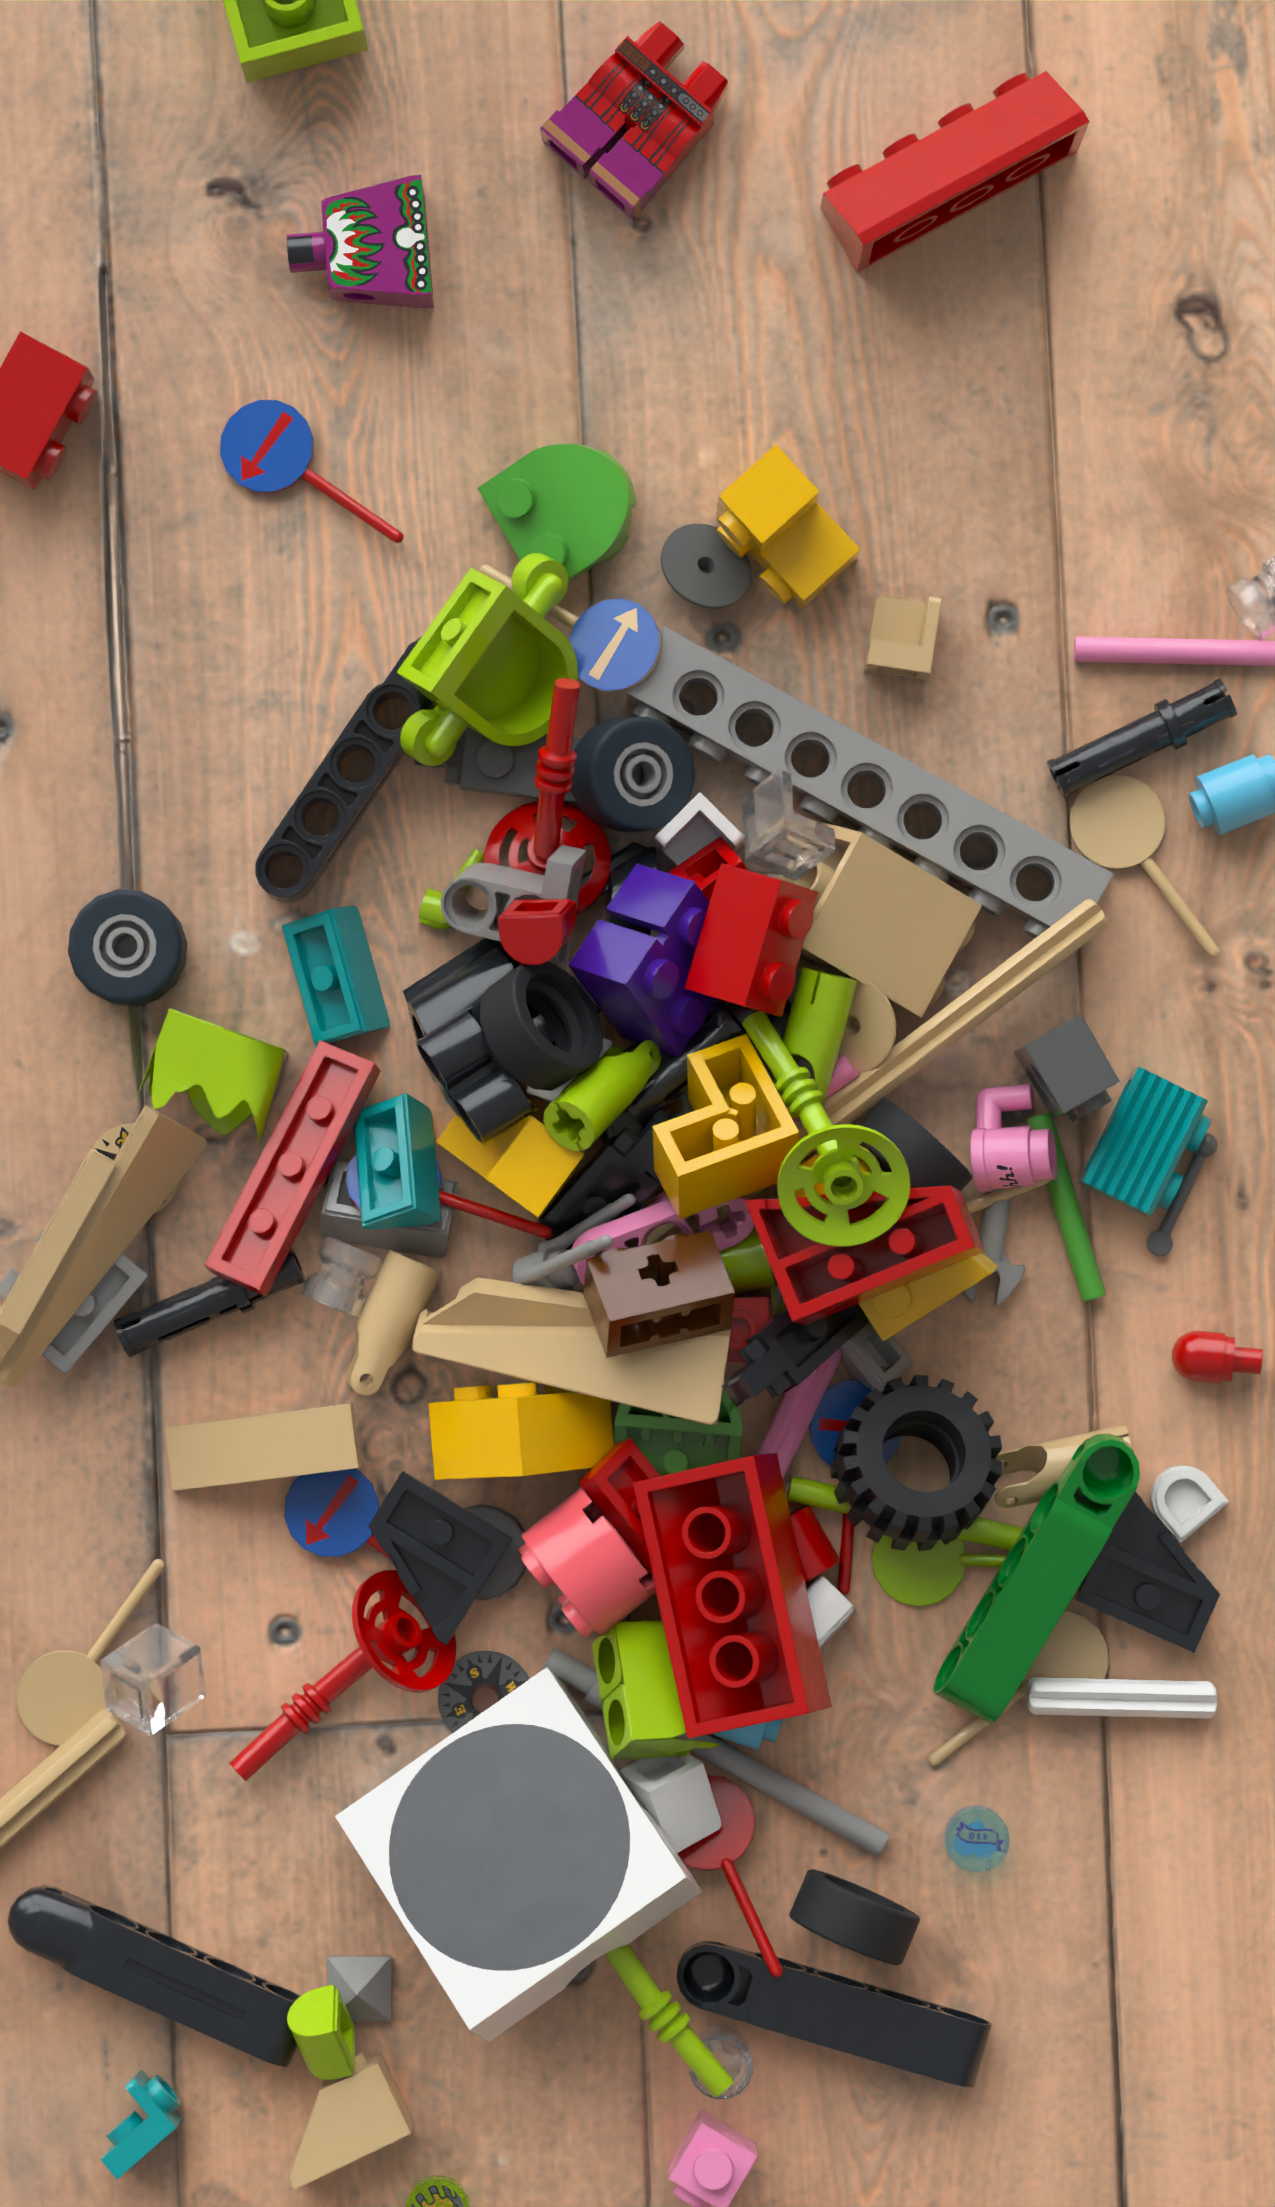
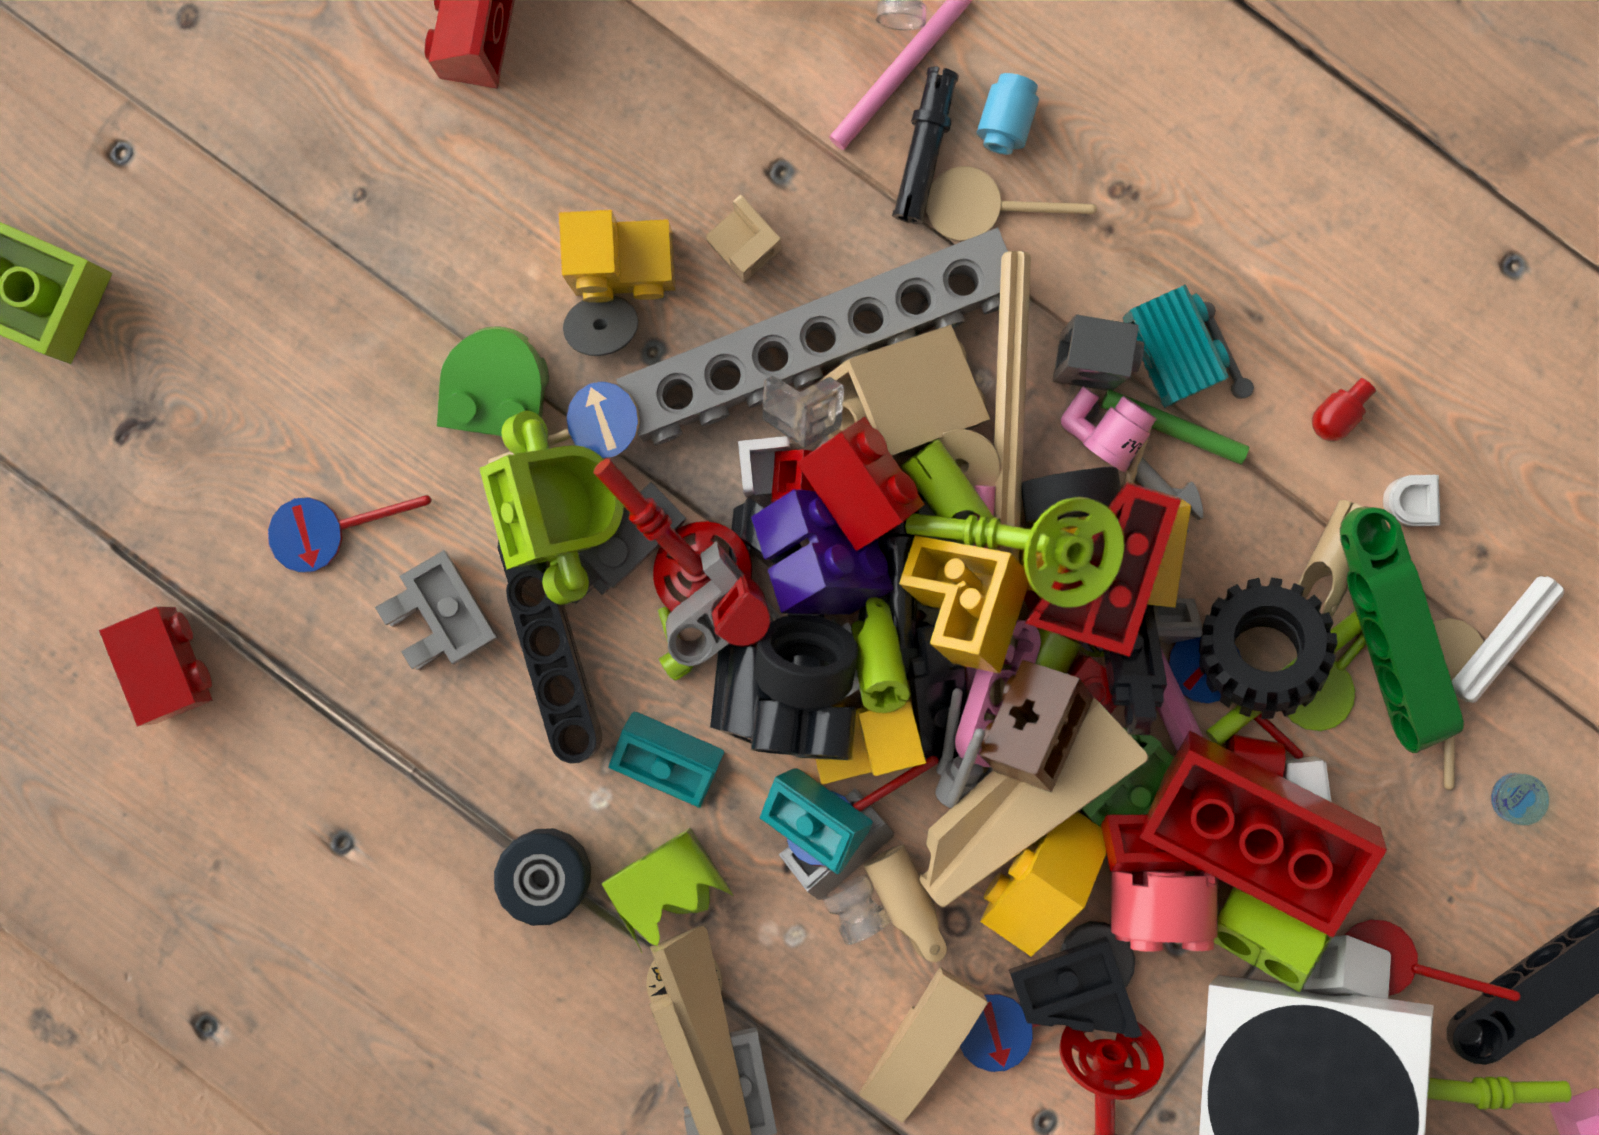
camera: 45 degrees left, 0 degrees up
(197, 1307) = (810, 983): black pin -> none
(292, 1168) = (765, 887): plate -> none
(310, 645) = (448, 609): none -> light grey plate
(371, 246) = (232, 368): torso -> none
(476, 1685) = (1181, 1030): piece -> none
(610, 774) = (679, 487): black wheel -> none
(641, 98) = (289, 143): hips -> none
(738, 2064) = (1546, 1068): clear wheel -> none
(743, 1767) = (1363, 907): light grey bar -> none
(854, 1917) = (1519, 918): black tyre -> none
(1149, 1580) = (1457, 562): black wing -> none

